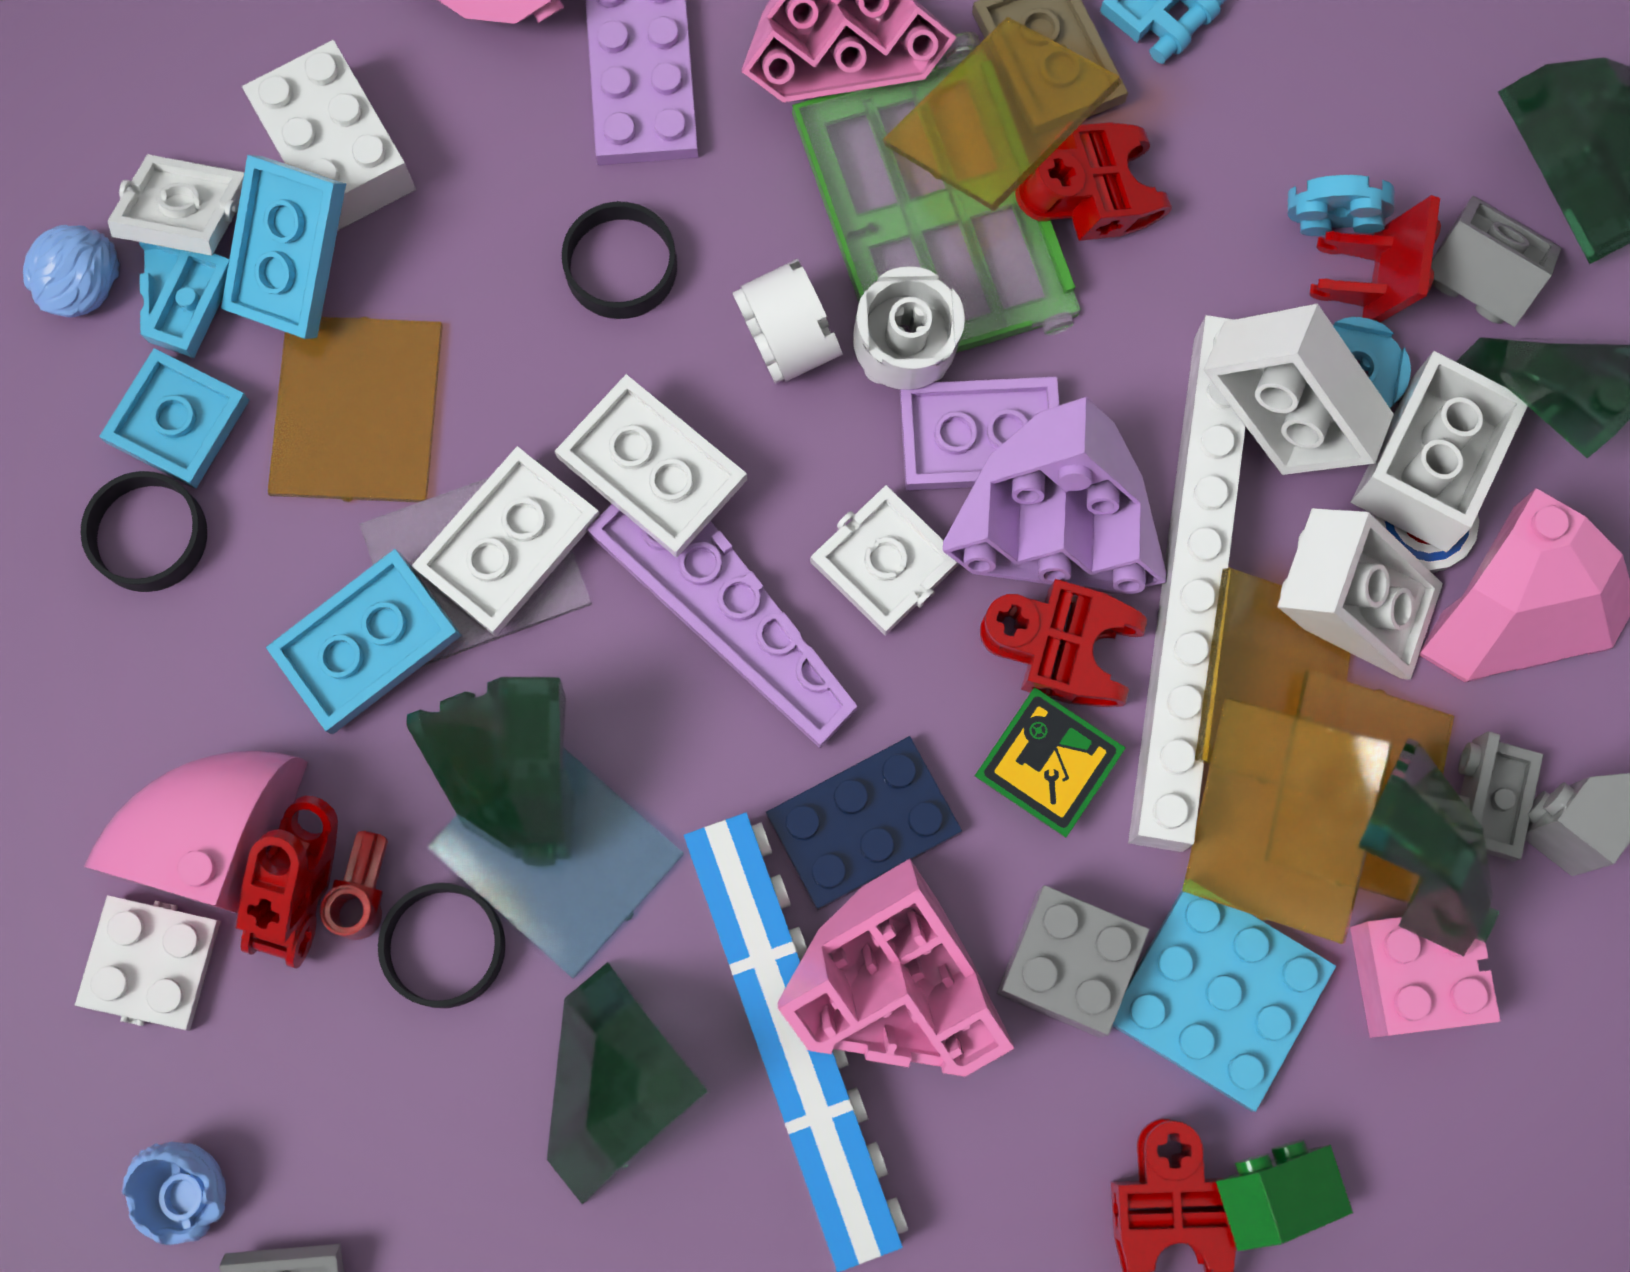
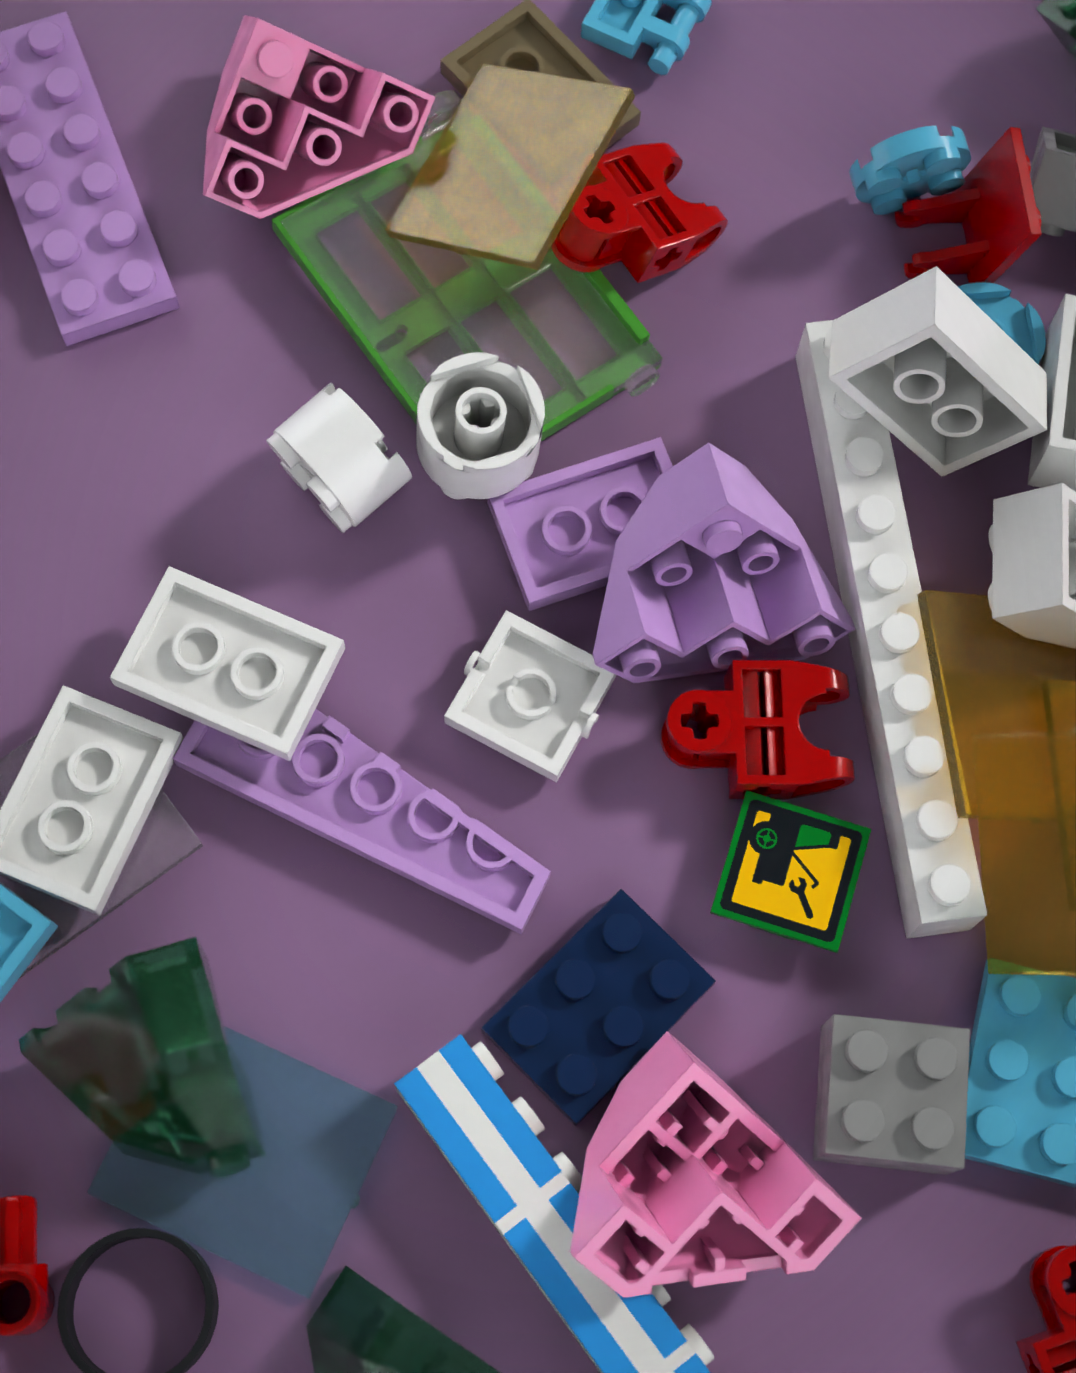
camera: 20 degrees left, 5 degrees down
(619, 211) = (101, 391): black tyre -> none

